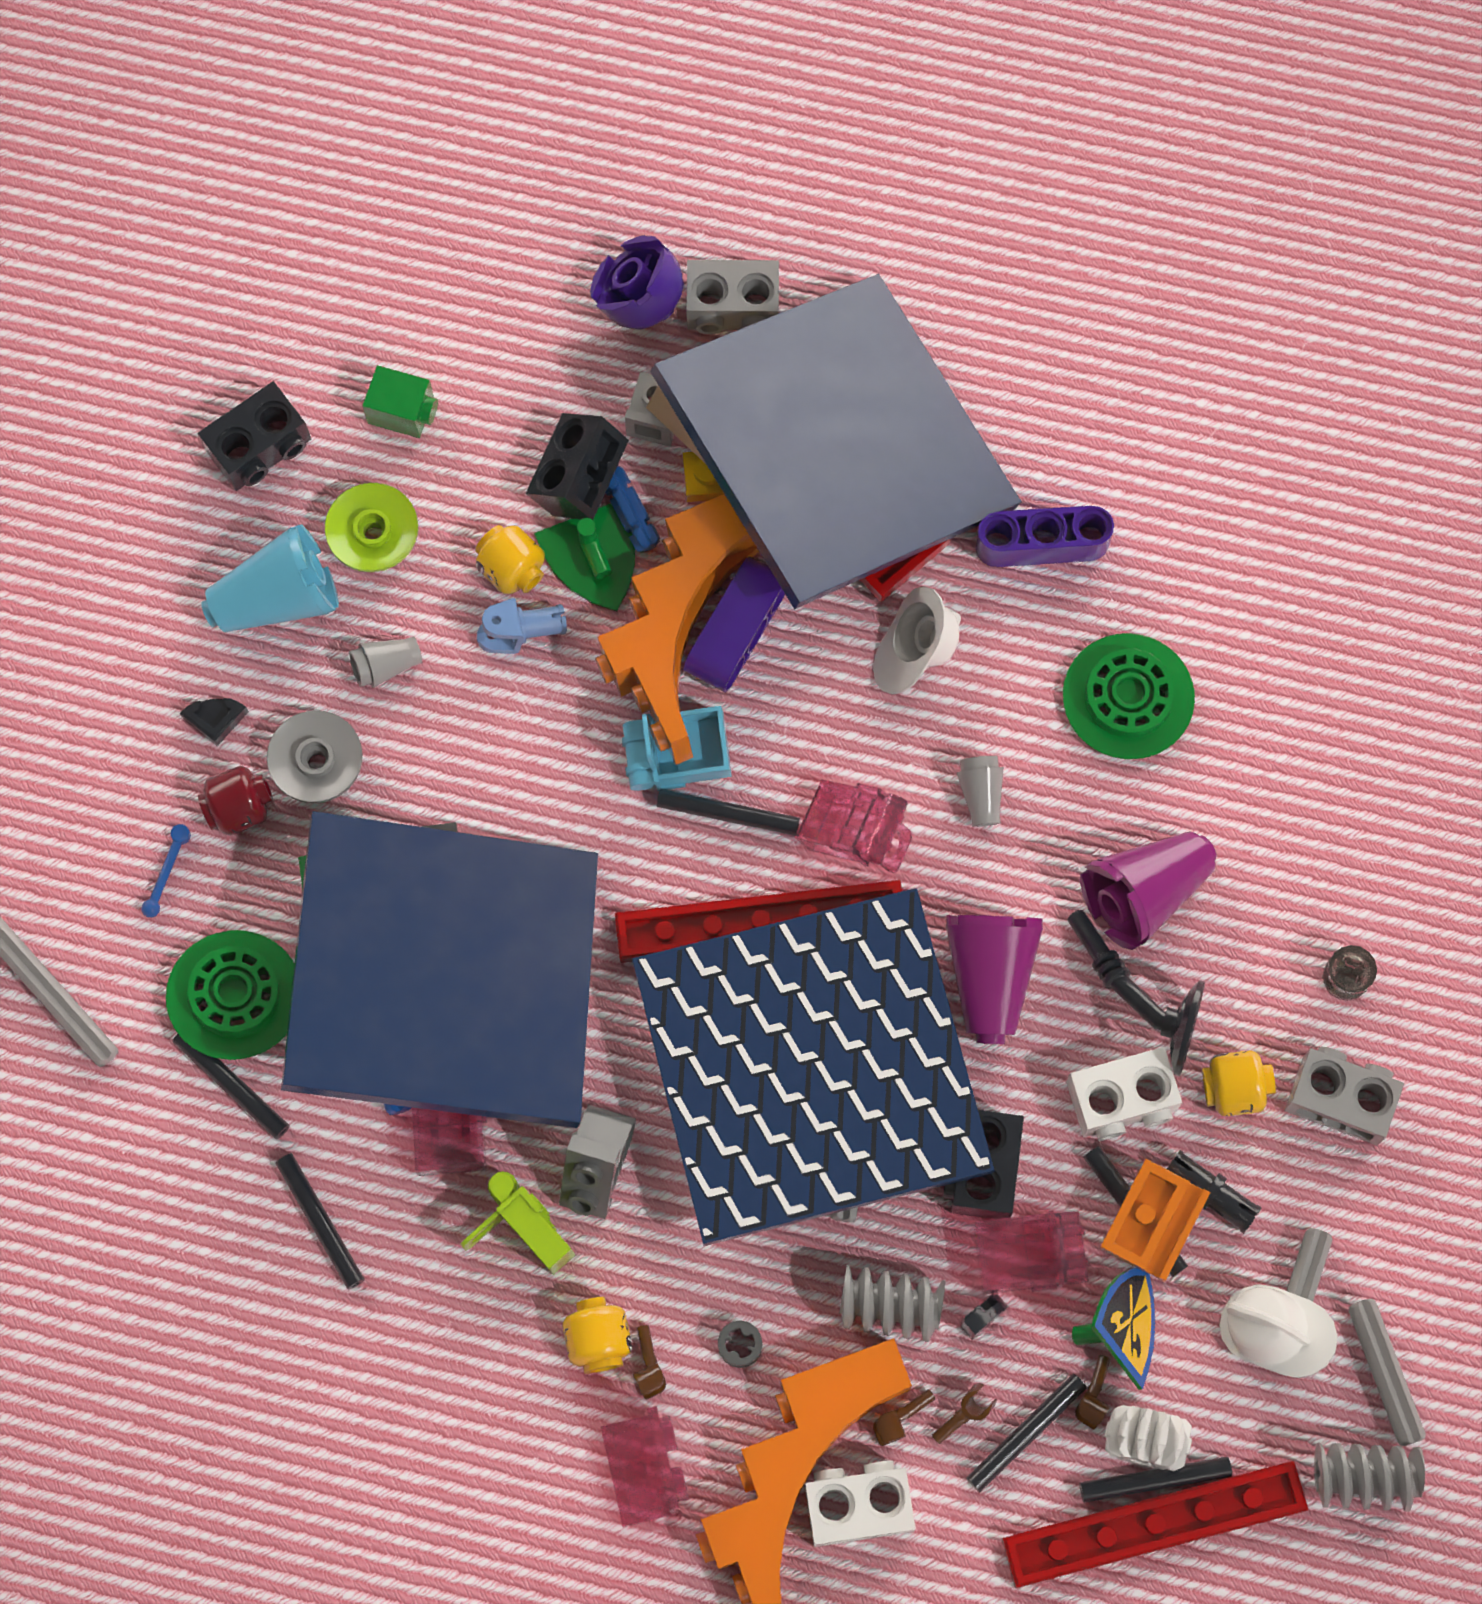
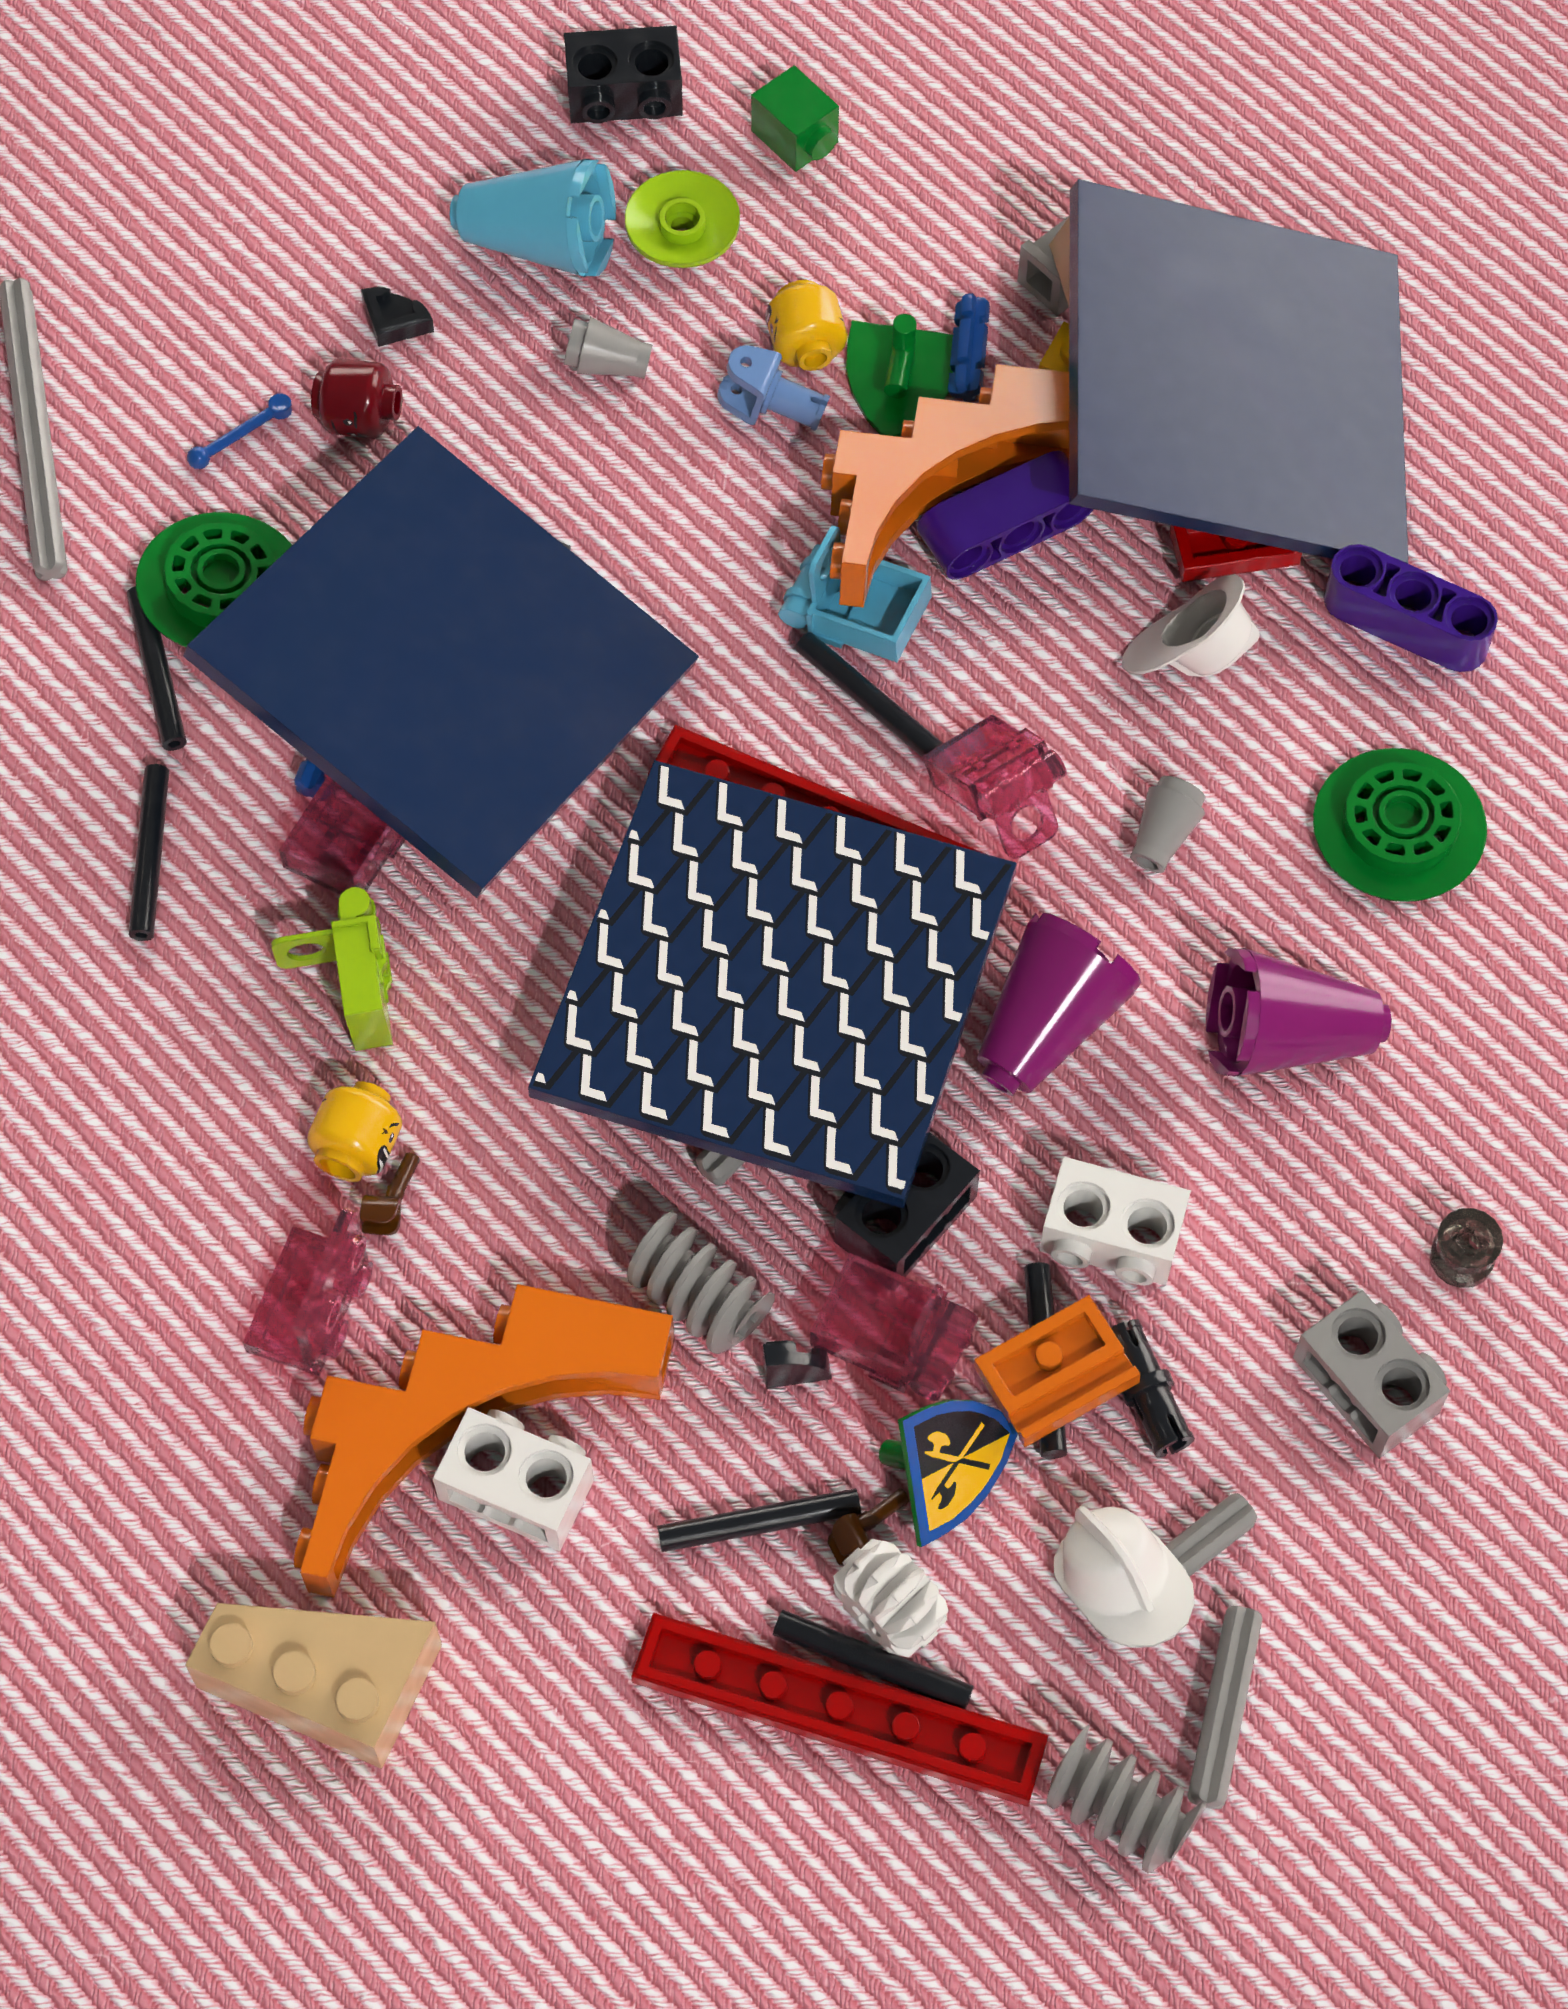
camera: 30 degrees right, 10 degrees down
(312, 735) = (465, 382): light grey dish -> none
(577, 466) = (939, 269): black brick -> none
(595, 1161) = (476, 949): dark grey pin -> none
(639, 284) = (1126, 137): dark purple cylinder -> none
(733, 284) = (1225, 183): light grey brick -> none
(747, 1330) = (491, 1218): dark grey bush -> none
(889, 1426) = (611, 1413): reddish brown hand -> none
(968, 1411) = (708, 1453): reddish brown hand -> none
(1174, 1023) = (1223, 1178): black dish -> none
(1238, 1083) = (1254, 1287): yellow head -> none

